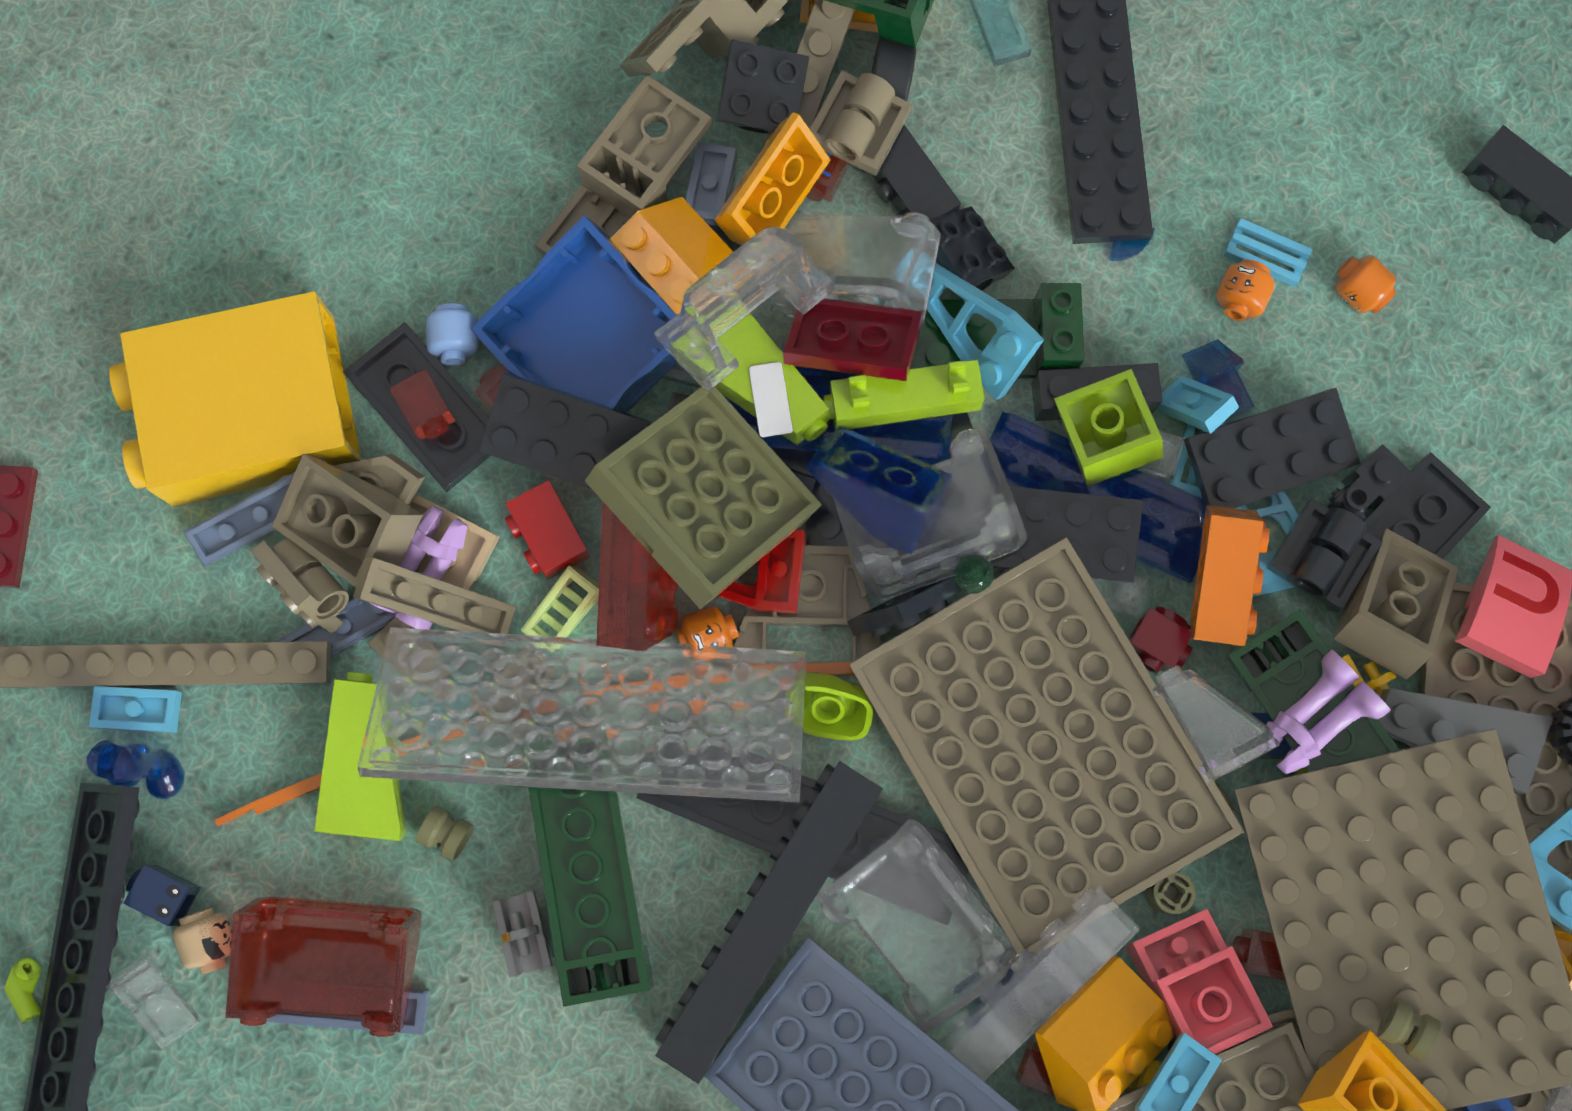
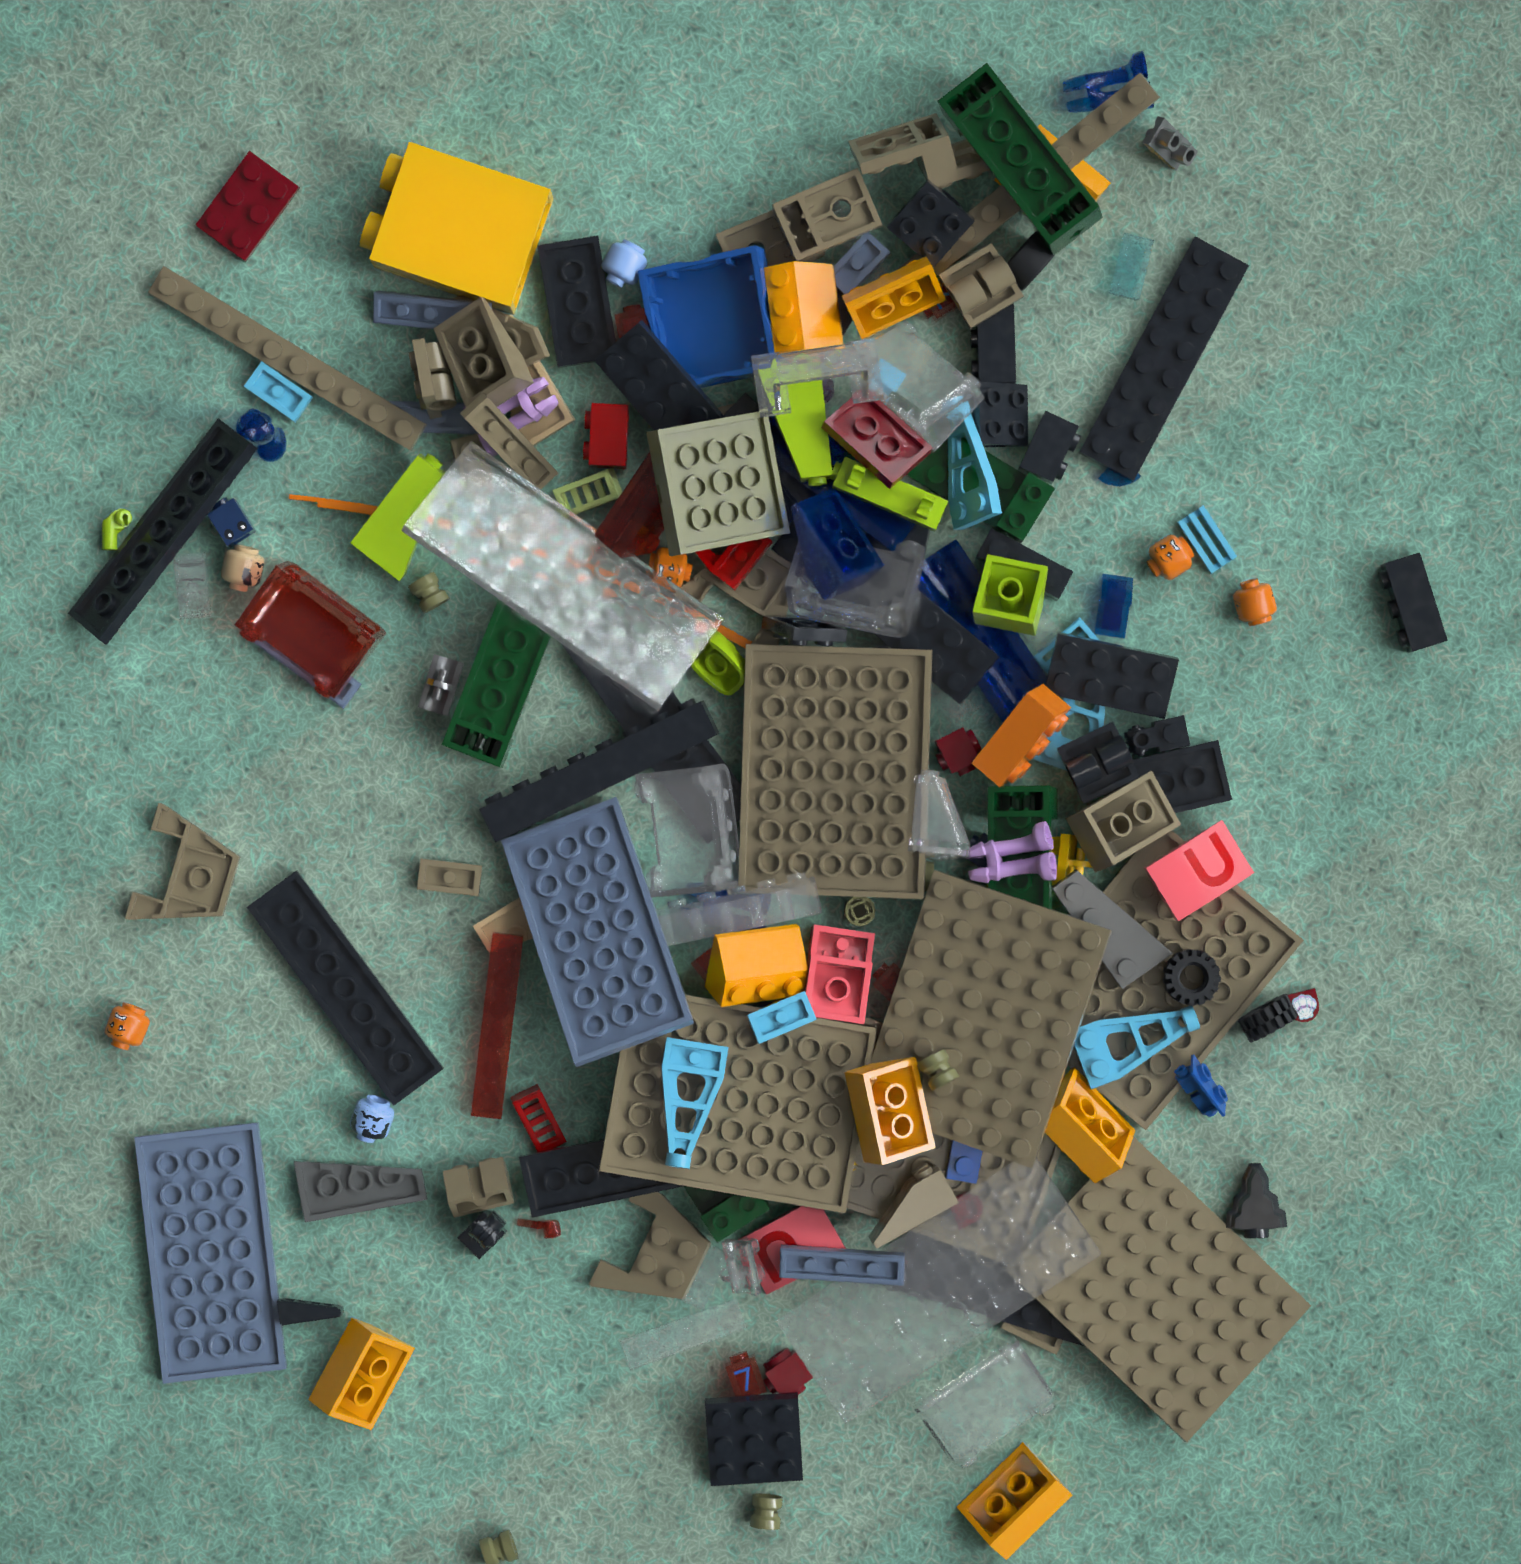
camera: 30 degrees right, 10 degrees up
(423, 405) = (576, 305): clear red brick -> none
(770, 399) = (799, 445): white sticker -> none
(974, 574) = (859, 636): clear green plate -> none
(1039, 251) = (1049, 447): none -> black brick
(1197, 404) = (1082, 613): medium azure plate -> none

